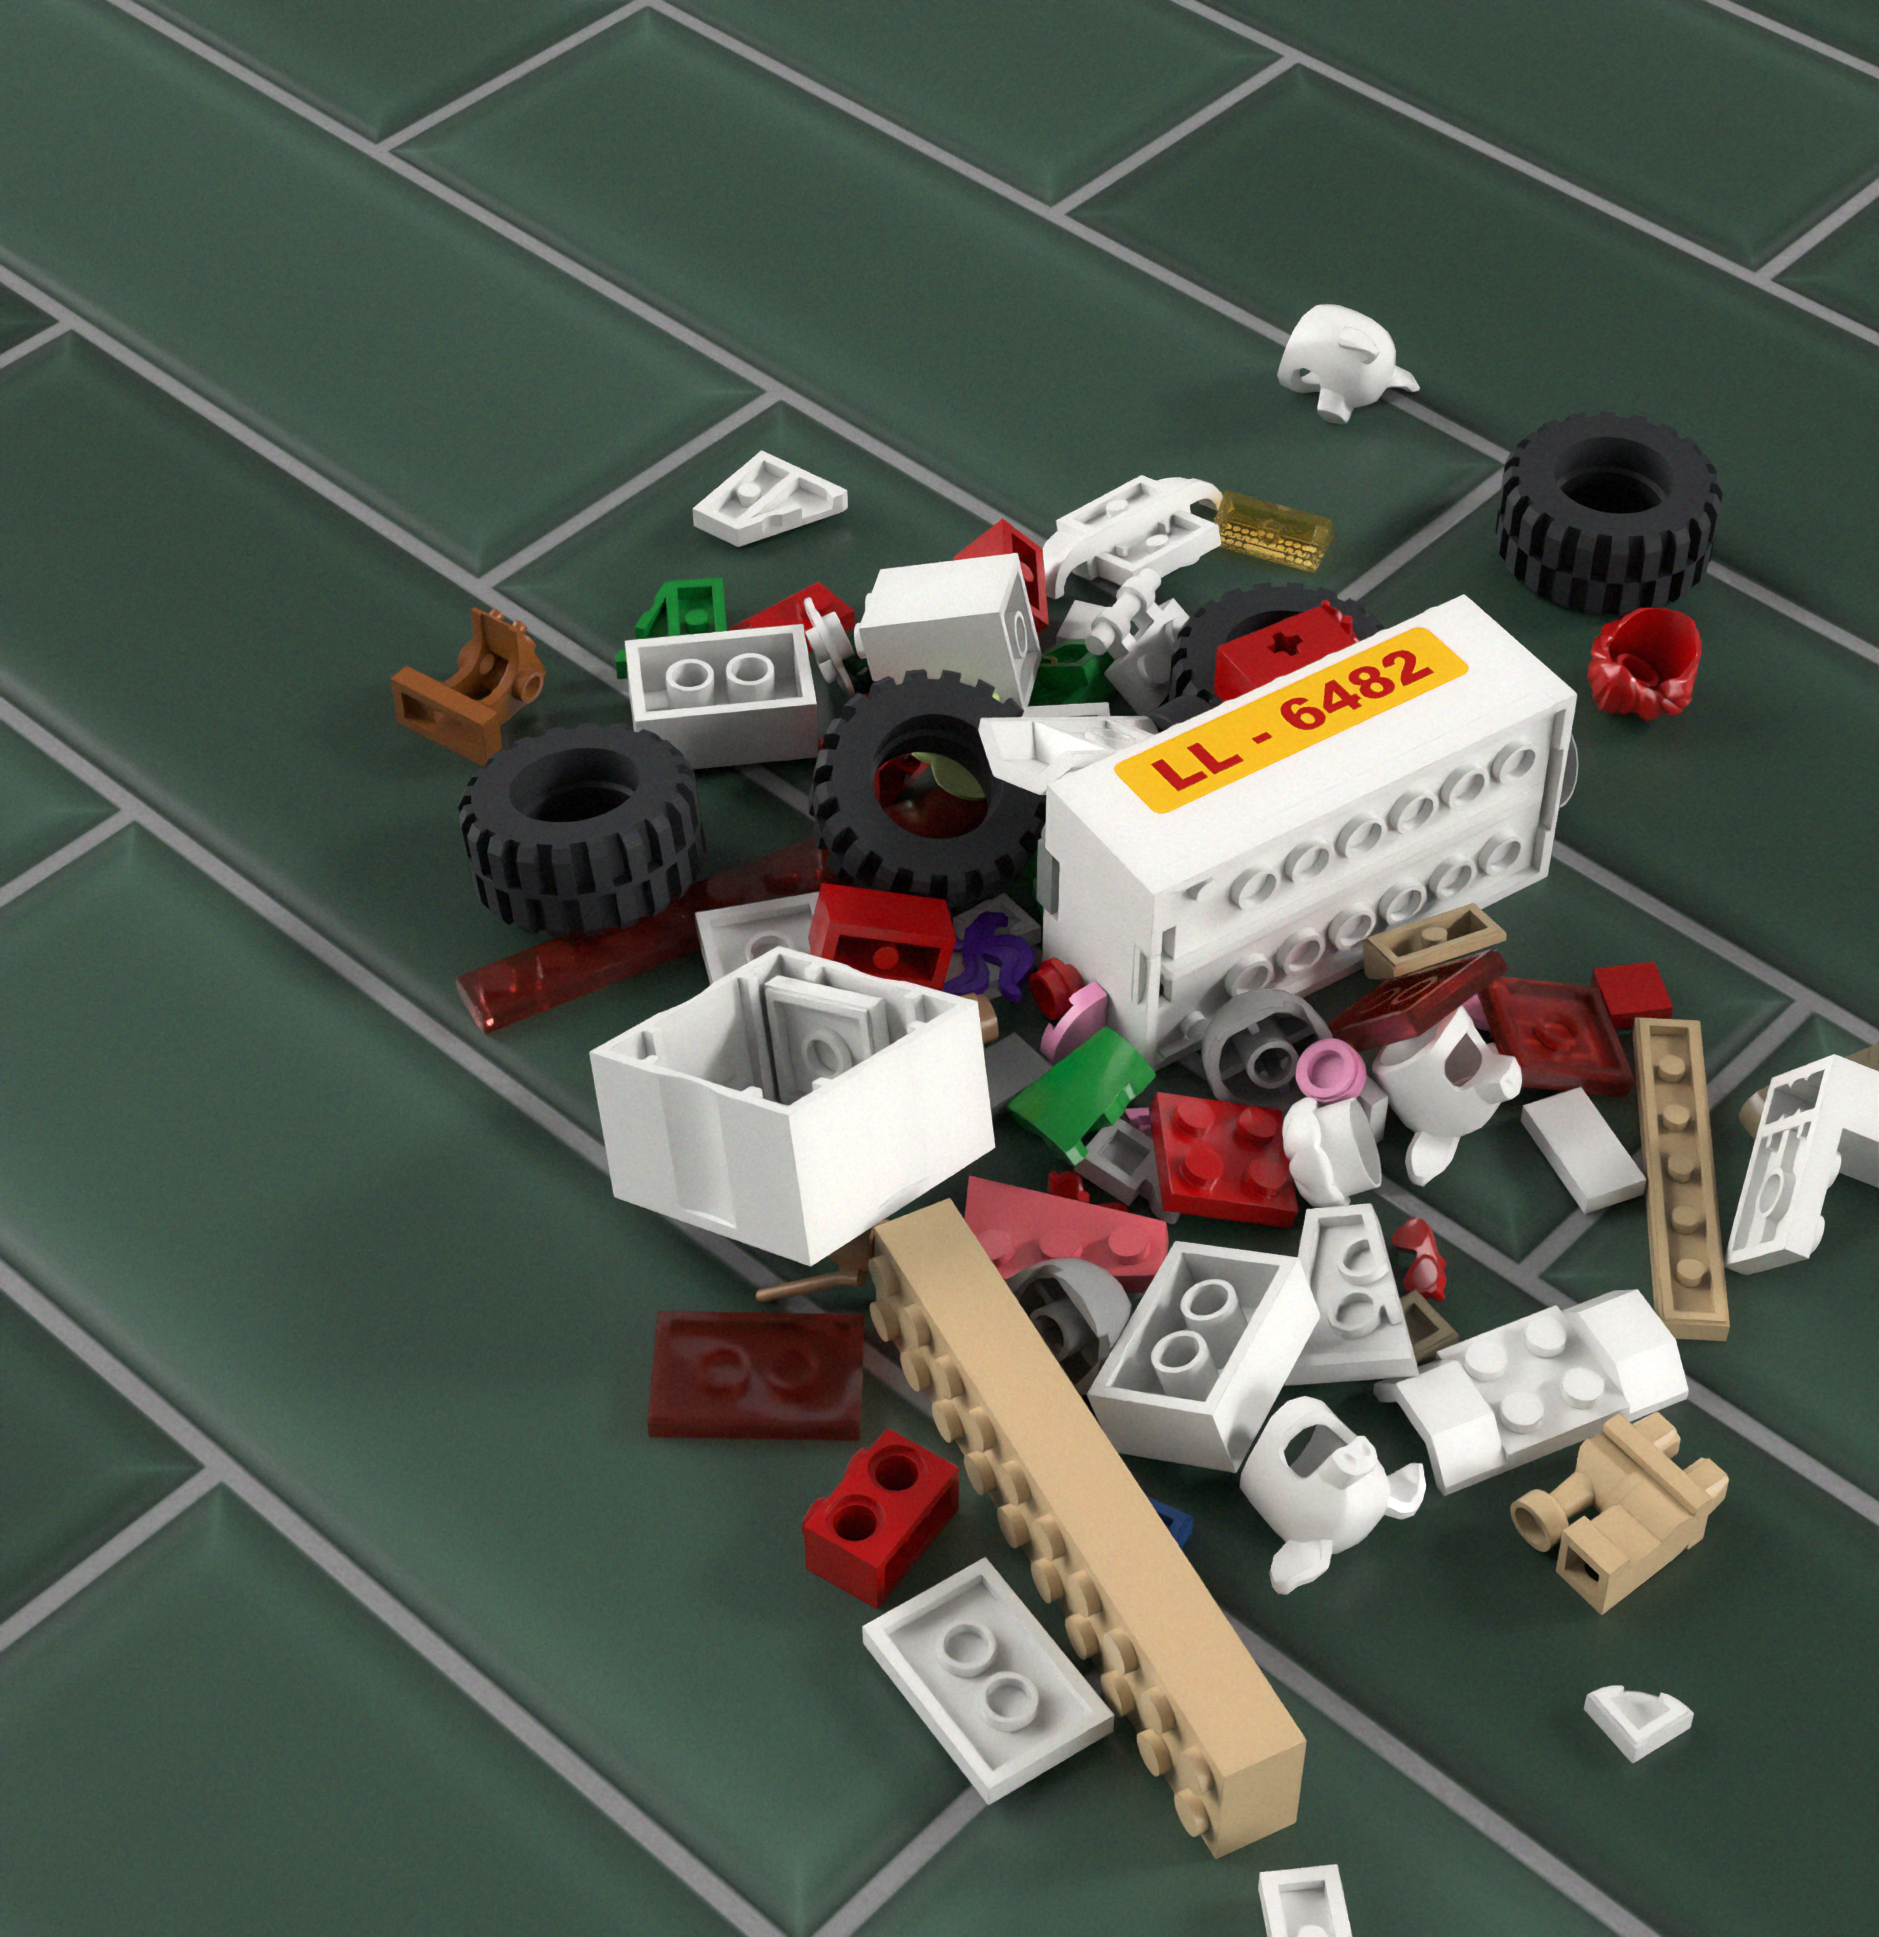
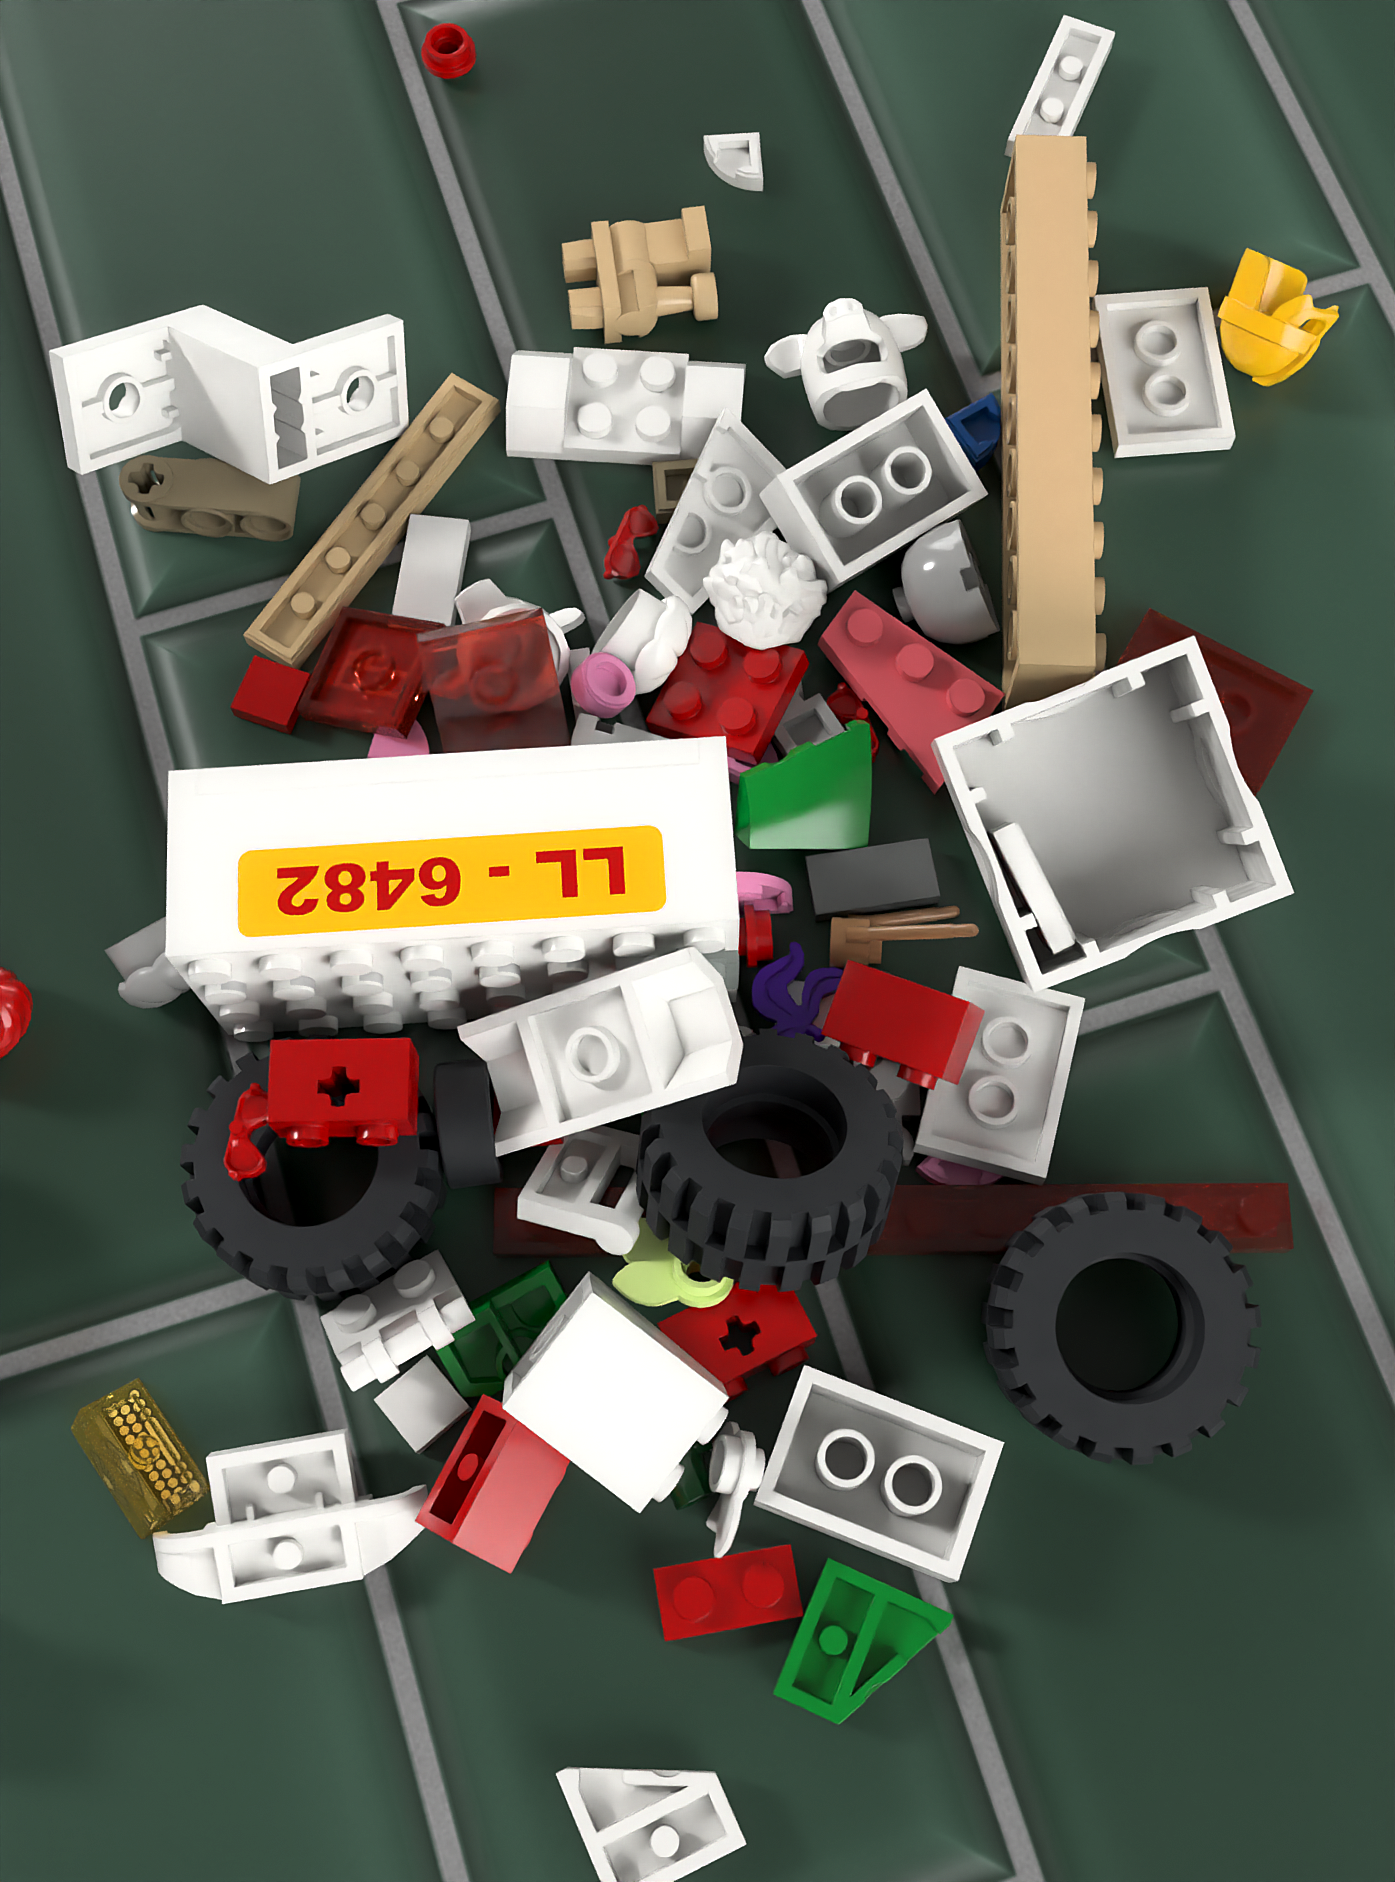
camera: 150 degrees left, 25 degrees up
(495, 663) = (1153, 1640): dark orange tile -> none
(892, 1523) = (1169, 507): red brick -> none
(899, 1788) = (1264, 319): none -> yellow helmet
(1247, 1209) = (764, 591): none -> white hair

